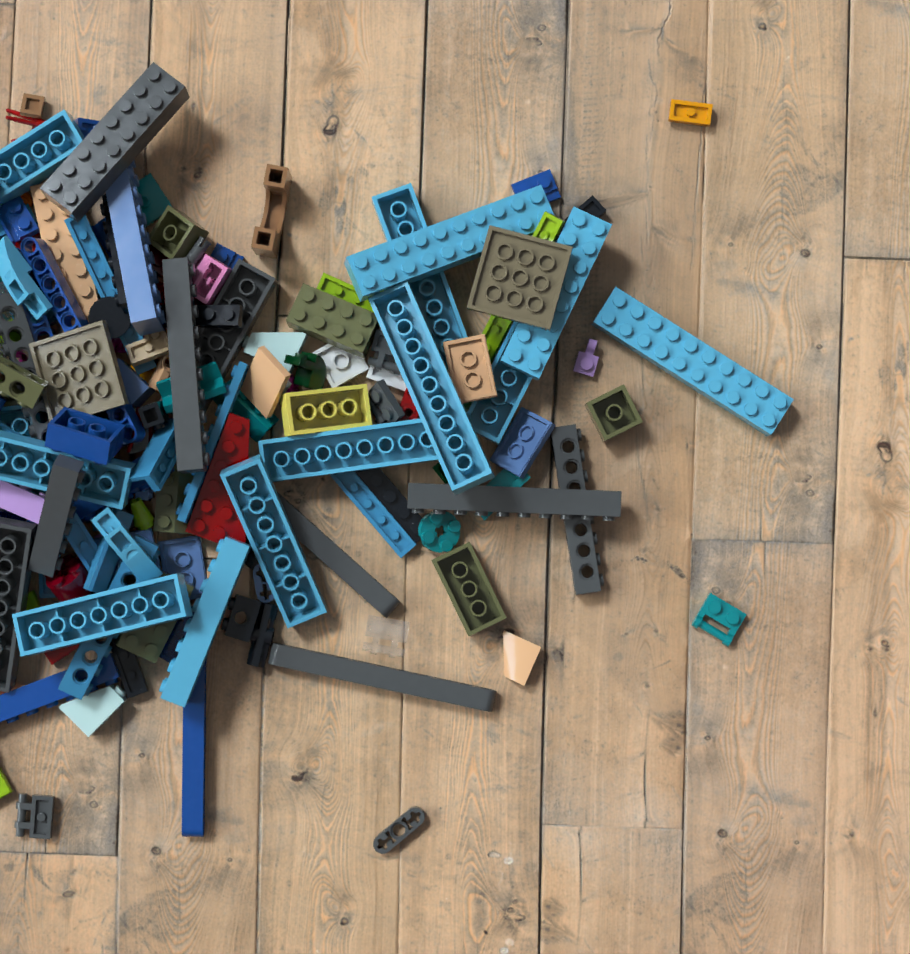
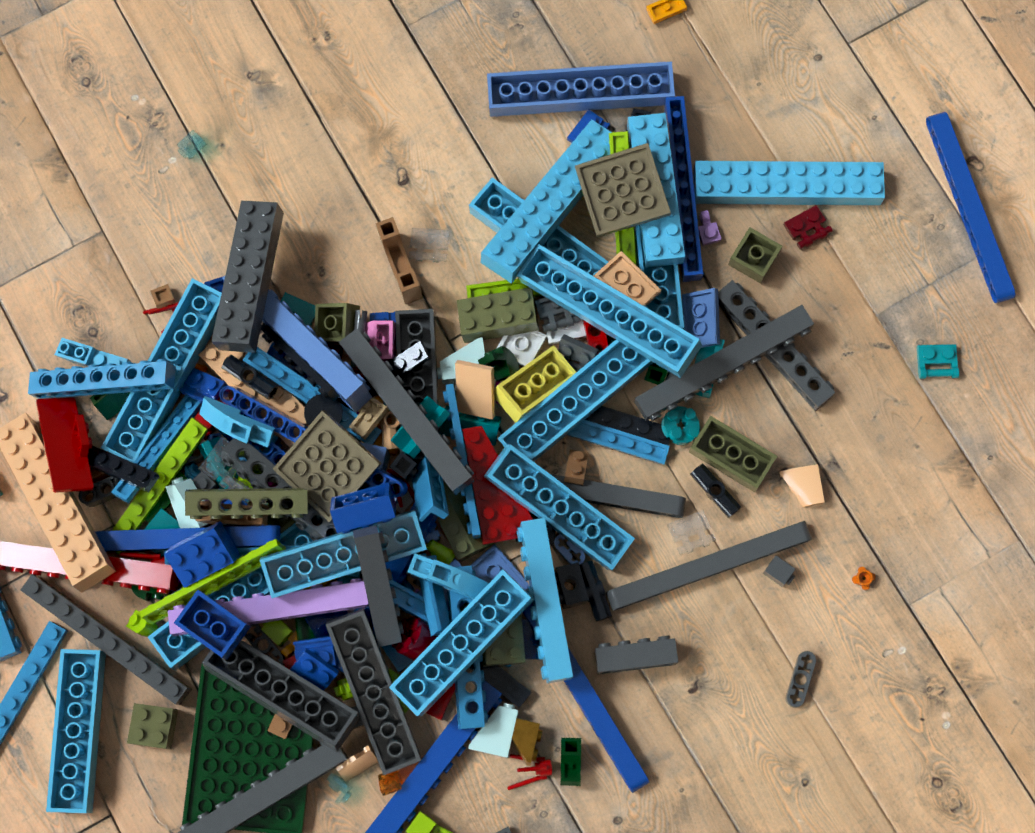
camera: 25 degrees left, 10 degrees down
(56, 228) = (241, 371): none -> black piece
(115, 730) = (525, 738): none -> pearl gold slope
(115, 765) = (542, 768): none -> red plant
(143, 776) = (570, 762): none -> dark green brick
(260, 718) = (636, 656): none -> dark grey brick
(317, 204) = (429, 239): none -> clear plate
(317, 511) = (576, 467): none -> medium nougat plate
(433, 626) = (724, 500): none -> black piece
(442, 722) = (779, 571): none -> dark grey brick
(514, 781) = (865, 584): none -> orange plate
(552, 144) = (580, 89): none -> medium blue brick
(588, 305) = (681, 159): none -> blue brick
(683, 408) = (803, 223): none -> dark red plate
(849, 491) = (970, 207): none -> blue beam

